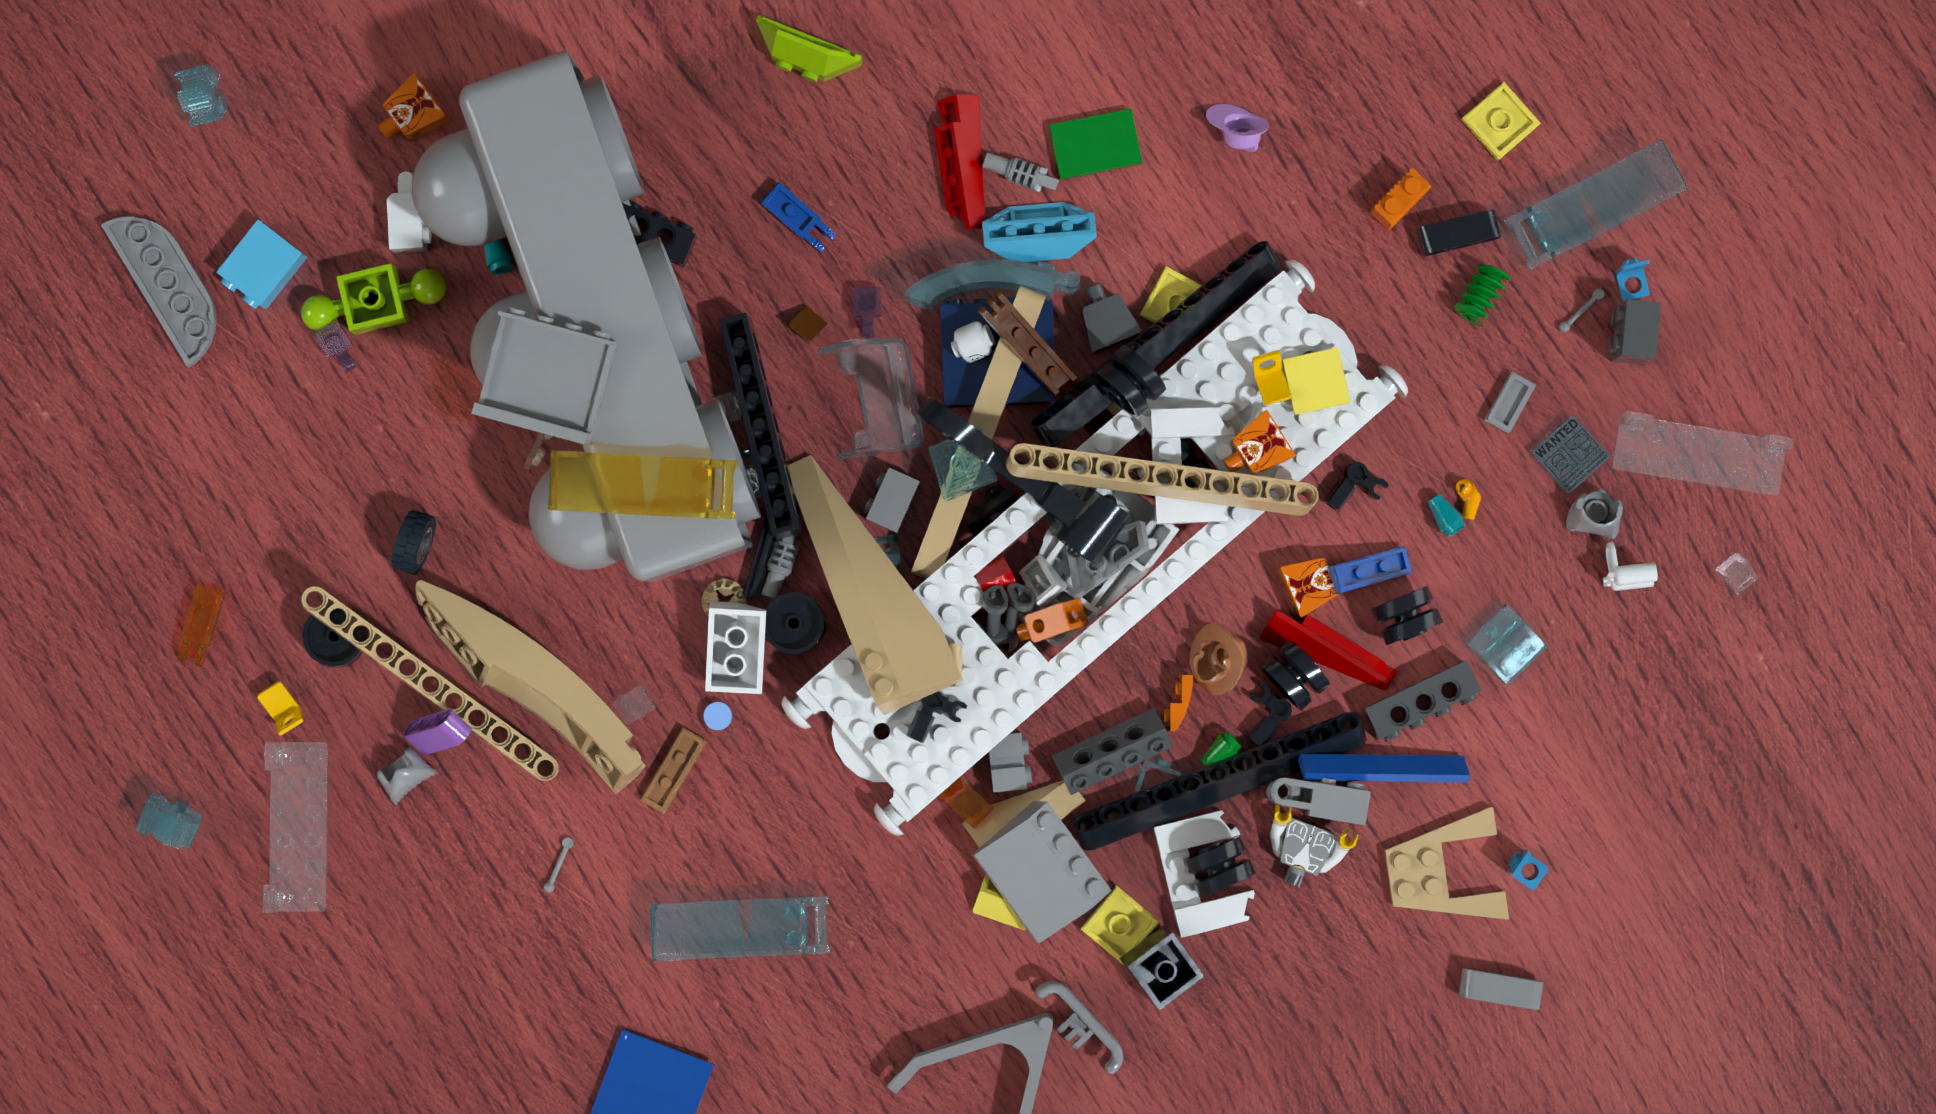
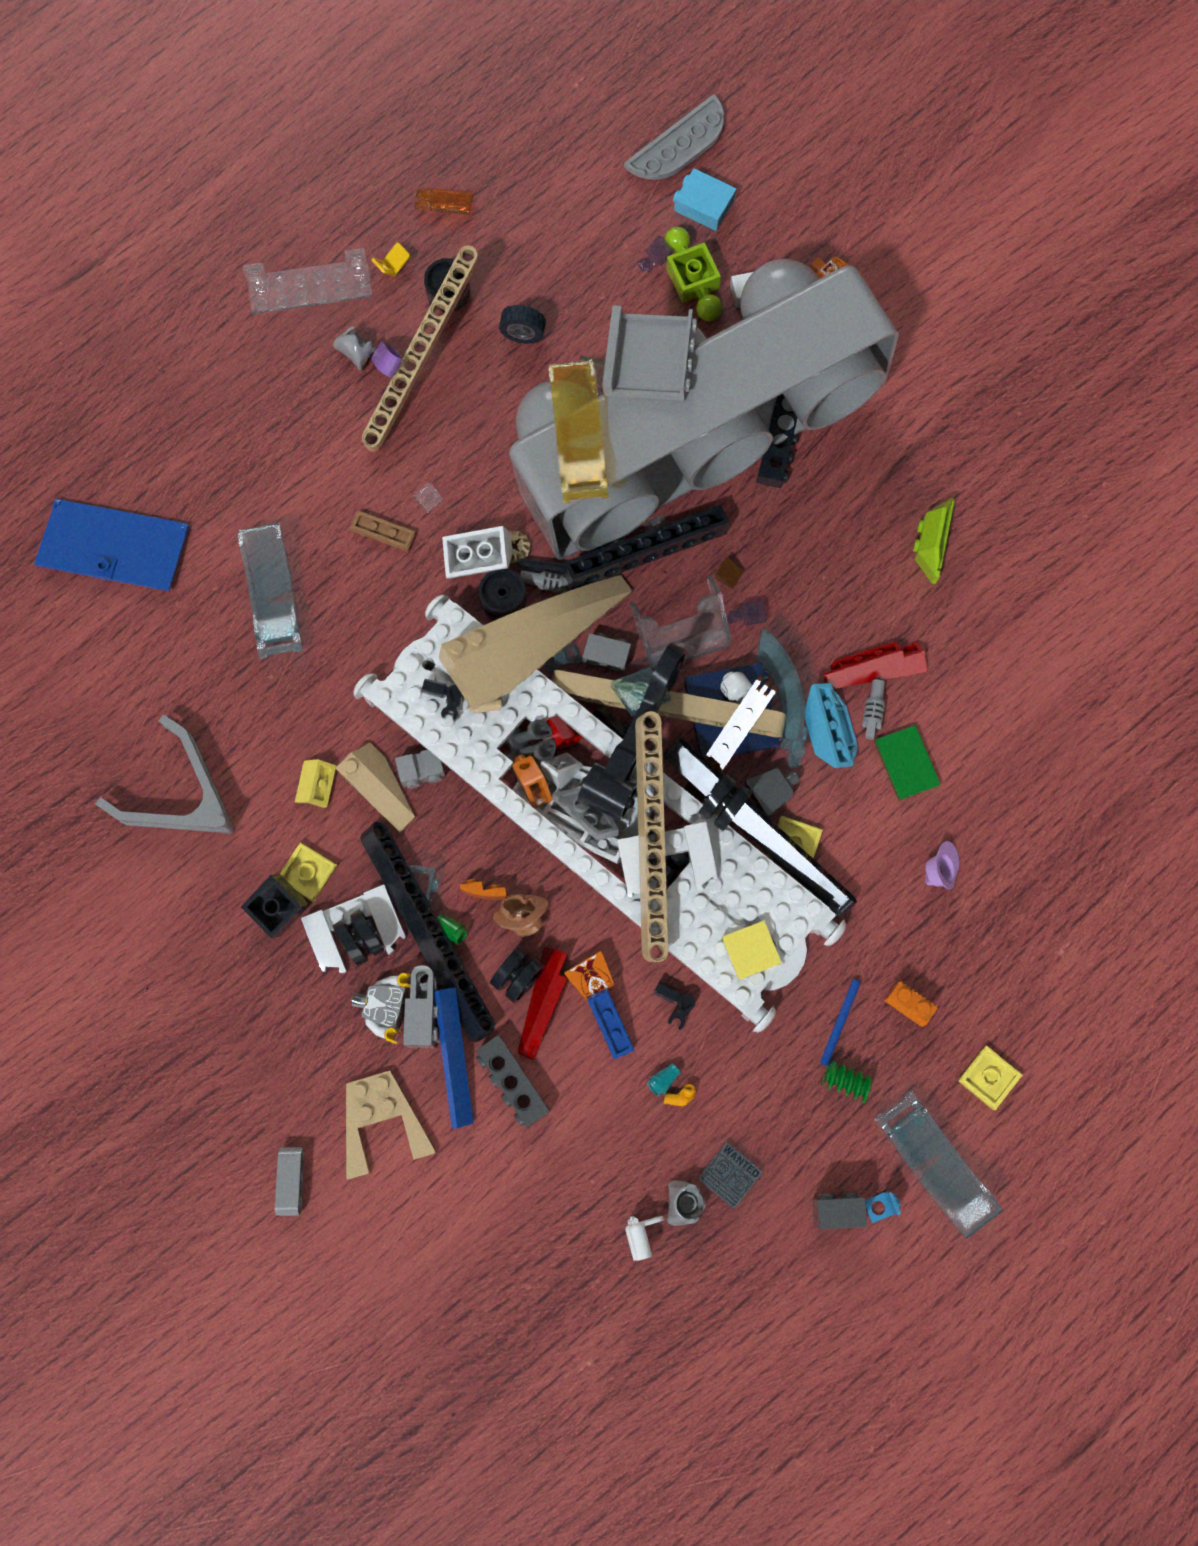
camera: 80 degrees right, 10 degrees down
(169, 822) = (301, 198): clear light blue brick -> none
(201, 94) = (817, 139): clear light blue brick -> none
(535, 679) = (439, 415): tan slope -> none
(567, 843) = (320, 466): light grey hinge -> none
(717, 716) = (427, 555): light blue tile -> none
(795, 215) = (809, 552): blue hinge -> none
(966, 802) = (386, 740): clear orange hinge -> none
(1041, 871) = (337, 800): light grey slope -> none
(1083, 1023) = (227, 854): light grey piece -> none
(1112, 751) = (438, 843): dark grey brick -> none
(1259, 446) = (691, 911): orange torso -> none
(1271, 379) = (746, 913): yellow bracket -> none
(1279, 711) = (476, 962): black bar -> none
(1407, 617) = (577, 1057): black wheel -> none
(1408, 289) = (839, 1024): none -> blue bar
(1458, 233) = (893, 1056): black beam -> none
(1506, 644) = (567, 1145): clear light blue slope -> none
(1509, 402) = (763, 1119): light grey tile -> none
(1518, 861) = (393, 1180): dark azure bracket -> none
(1597, 295) = (863, 1178): light grey hinge -> none
(1700, 454) = (748, 1285): clear bracket -> none
(1737, 573) = (655, 1331): clear slope -> none

